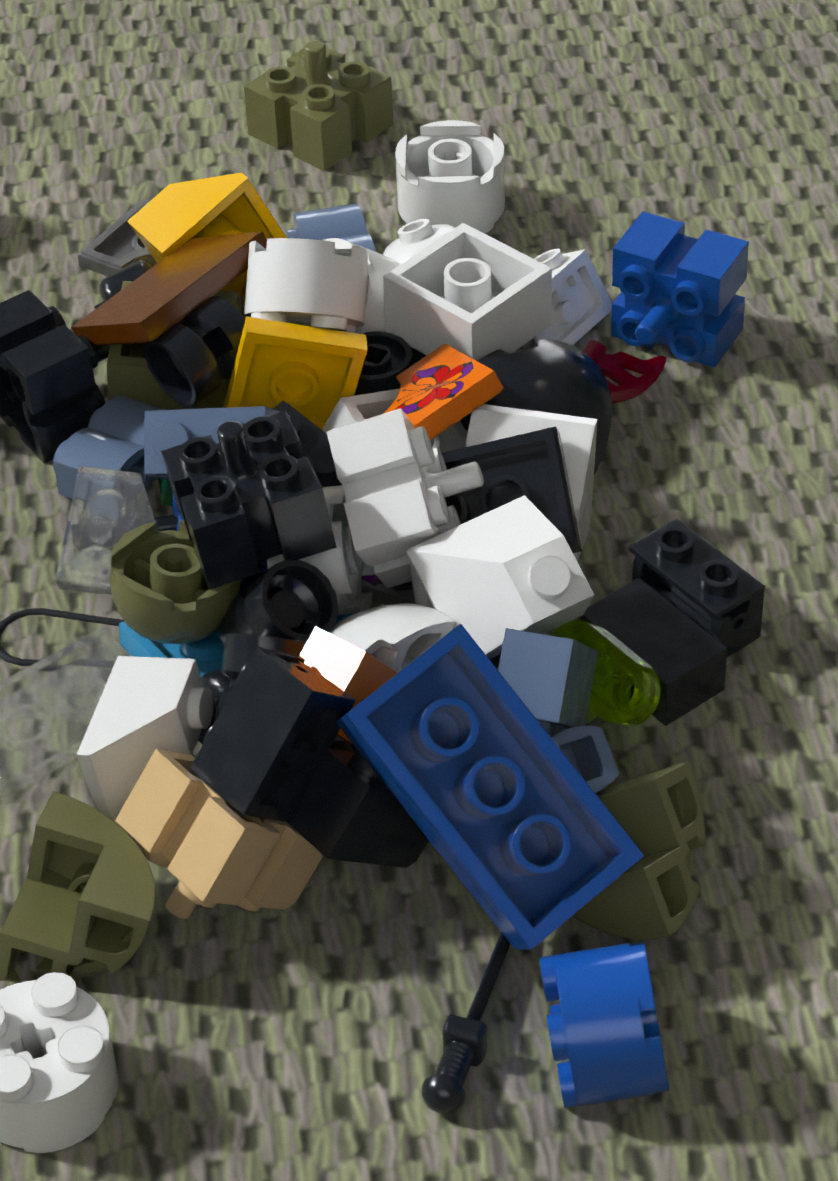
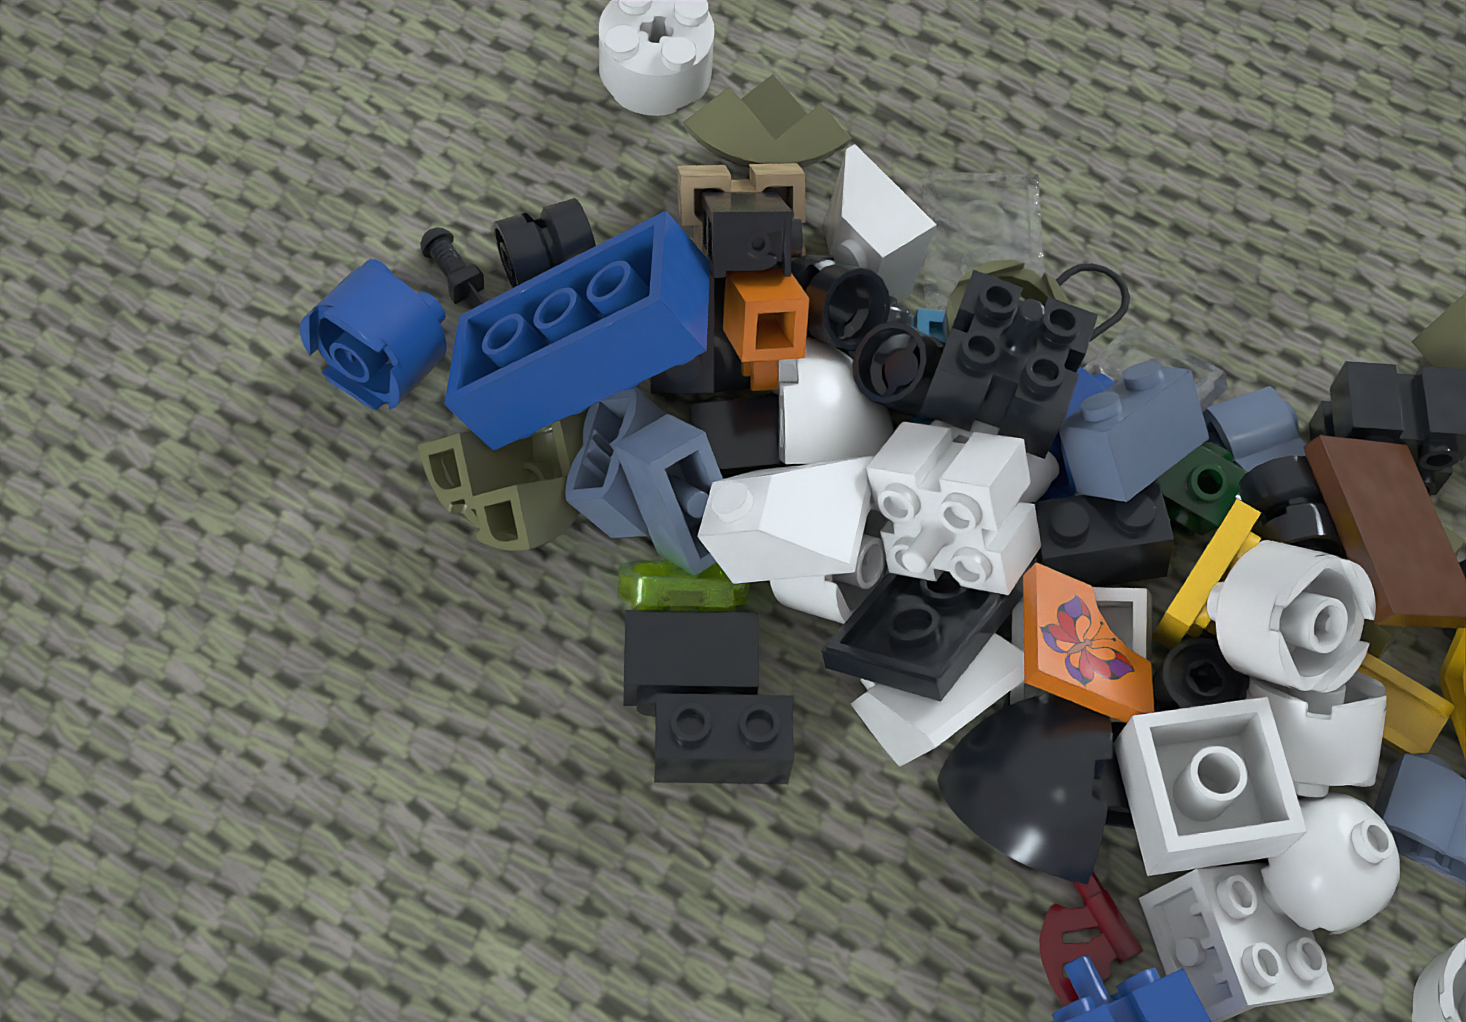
camera: 120 degrees right, 20 degrees up
(362, 985) = (537, 245): none -> black wheel

